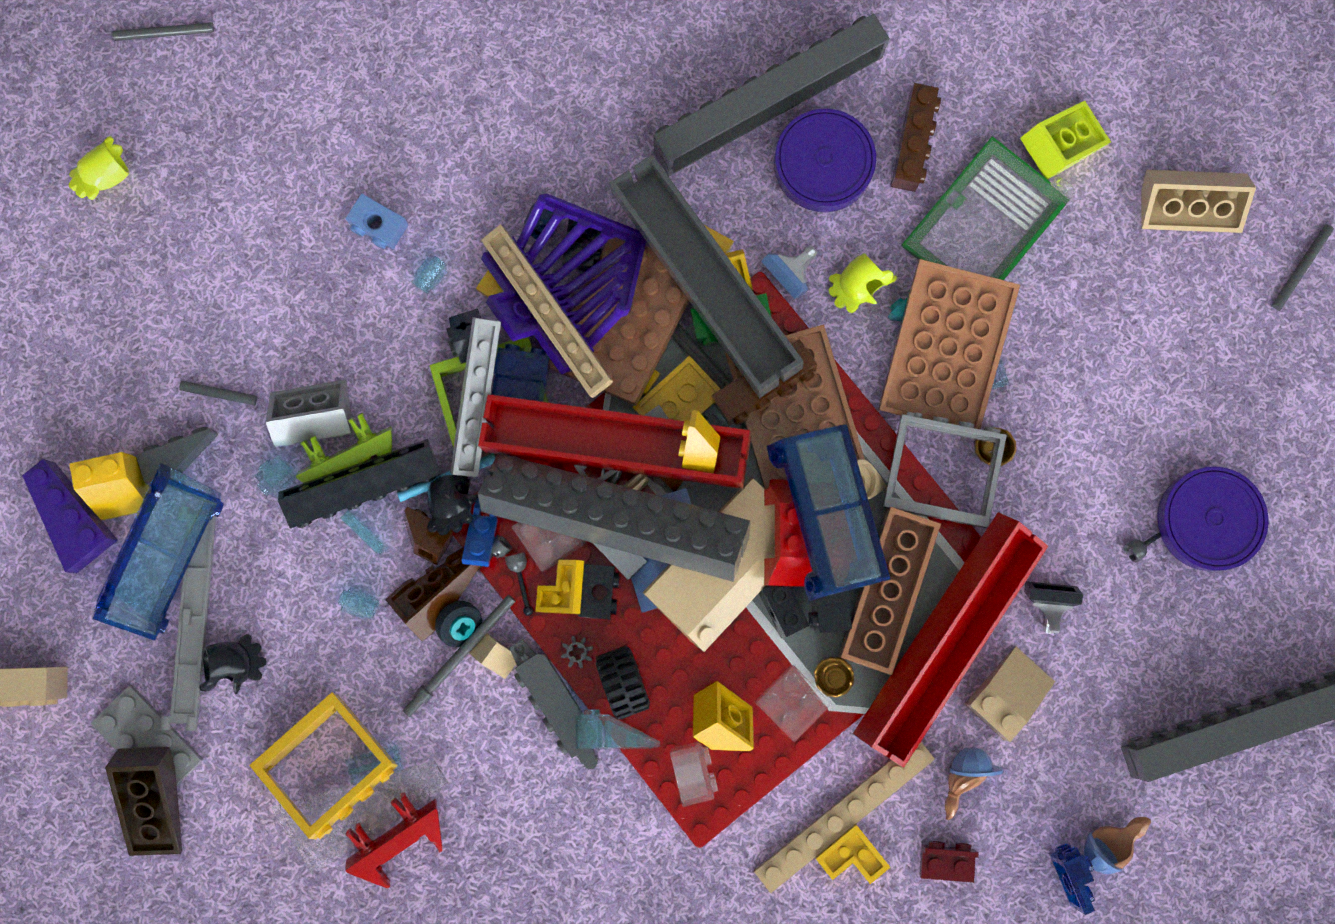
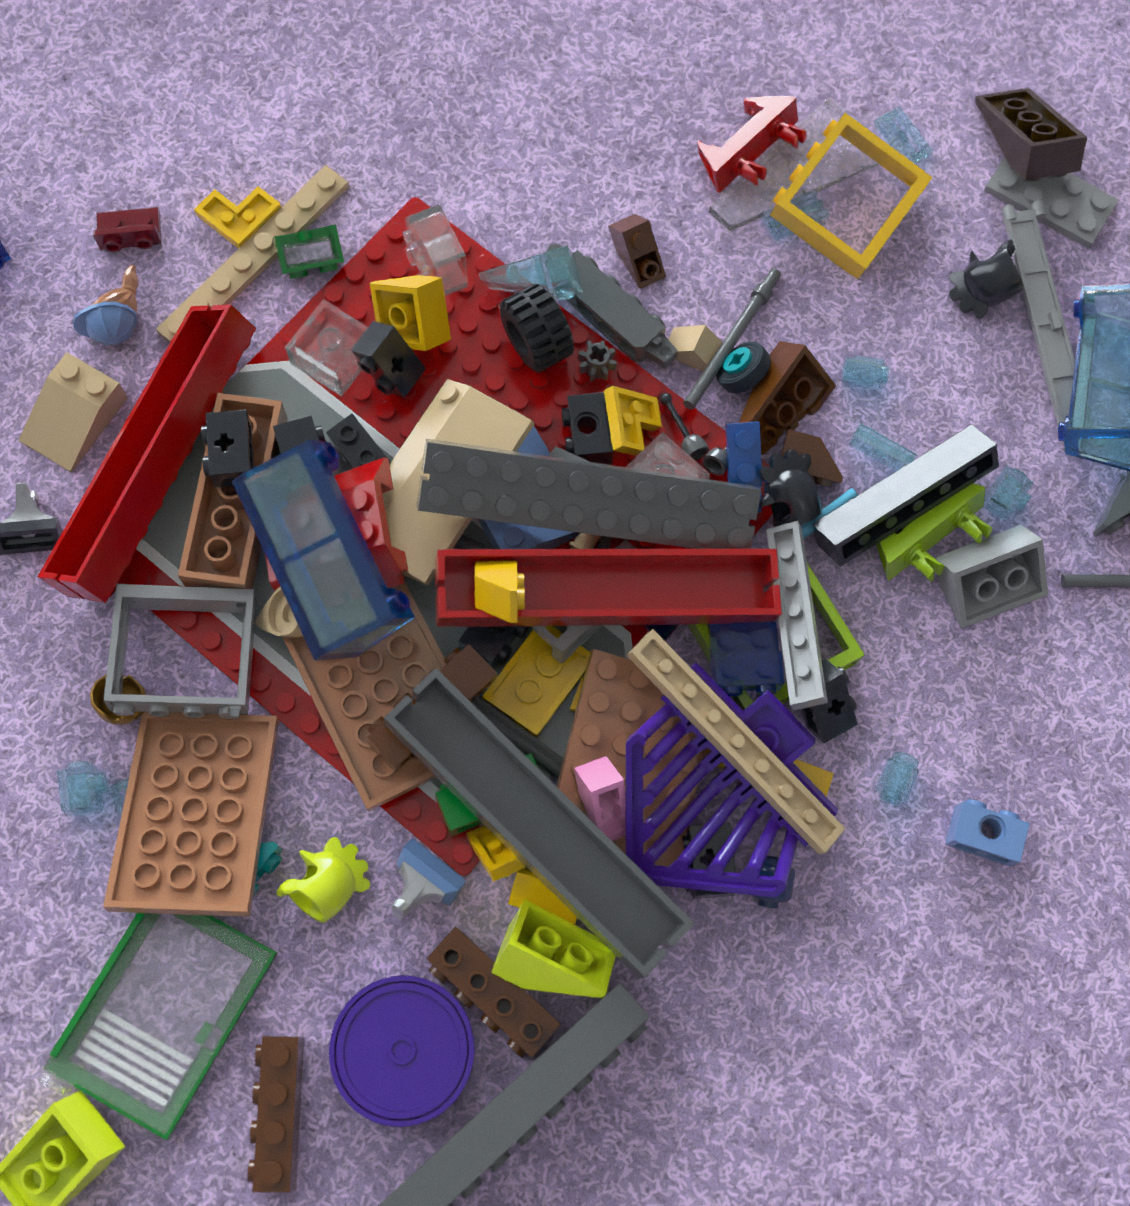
camera: 165 degrees right, 10 degrees down
(267, 820) = (886, 119): none -> clear light blue tile
(519, 754) = (638, 249): none -> reddish brown slope
(653, 289) = (603, 796): none -> bright pink arch
(713, 195) = (553, 955): none -> neon yellow slope
(750, 678) = (388, 359): none -> black brick
(755, 185) = (501, 1001): none -> reddish brown brick
(798, 806) = (309, 250): none -> window
(834, 676) = (289, 387): pearl gold hair -> none
(879, 629) = (228, 430): none -> black brick
(1028, 385) = (81, 788): none -> clear light blue brick

